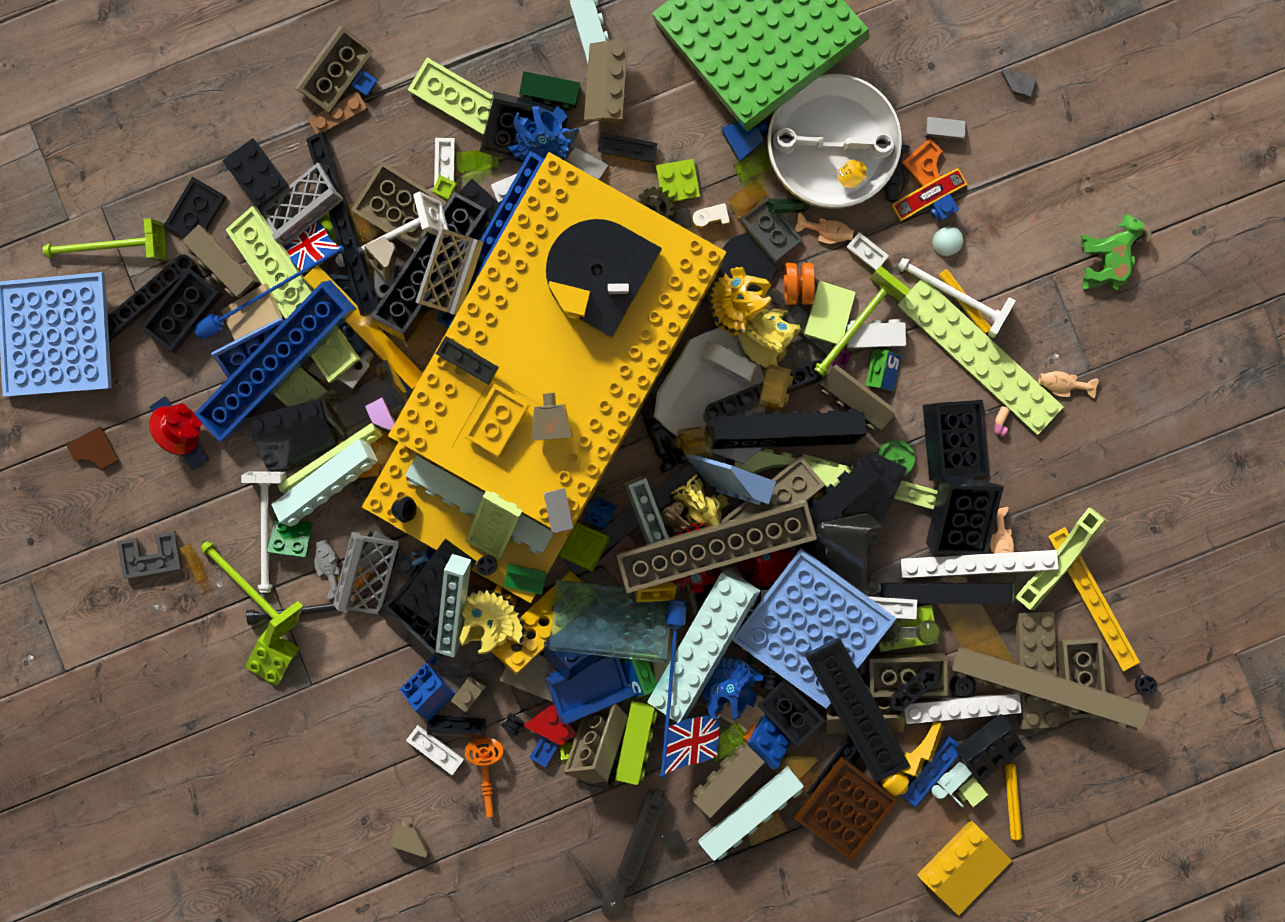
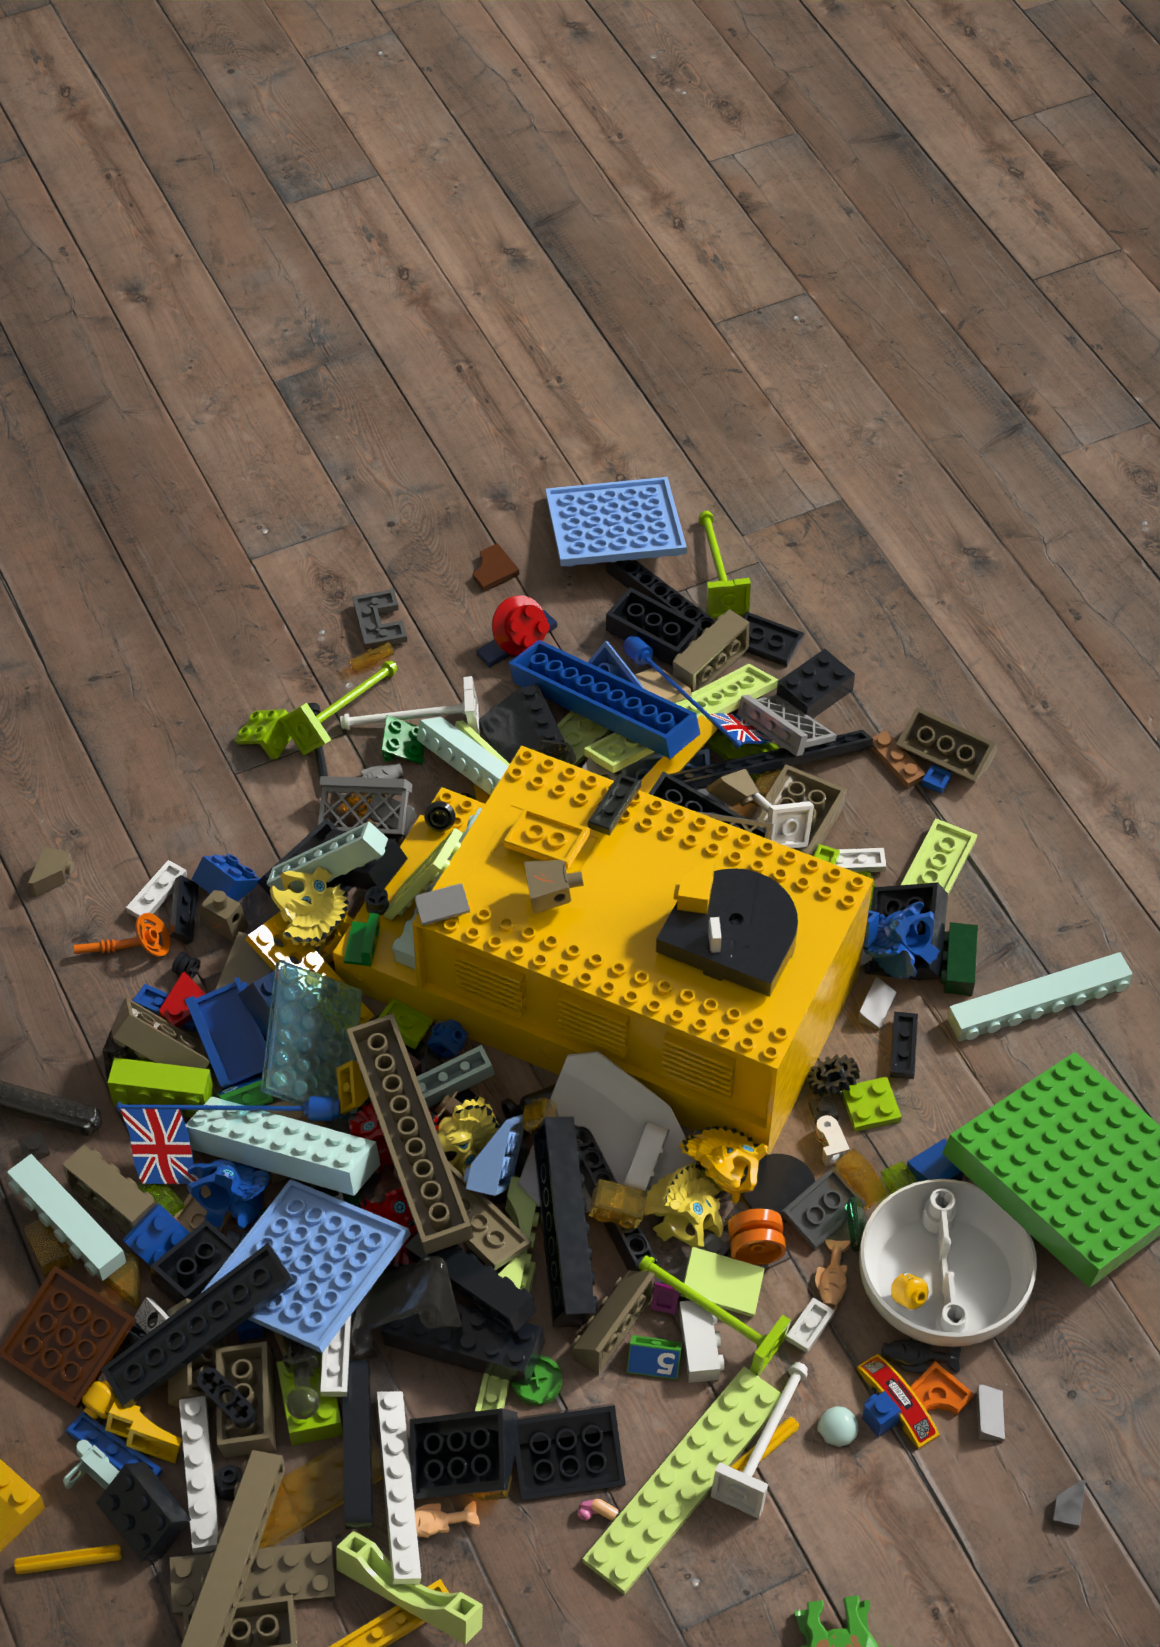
camera: 90 degrees right, 35 degrees down
(606, 81) = (980, 1009): dark tan slope -> none
(834, 744) = (150, 1315): none -> tile
(971, 791) = (83, 1497): yellowish green brick -> none
(1062, 383) = (657, 1588): light nougat animal -> none

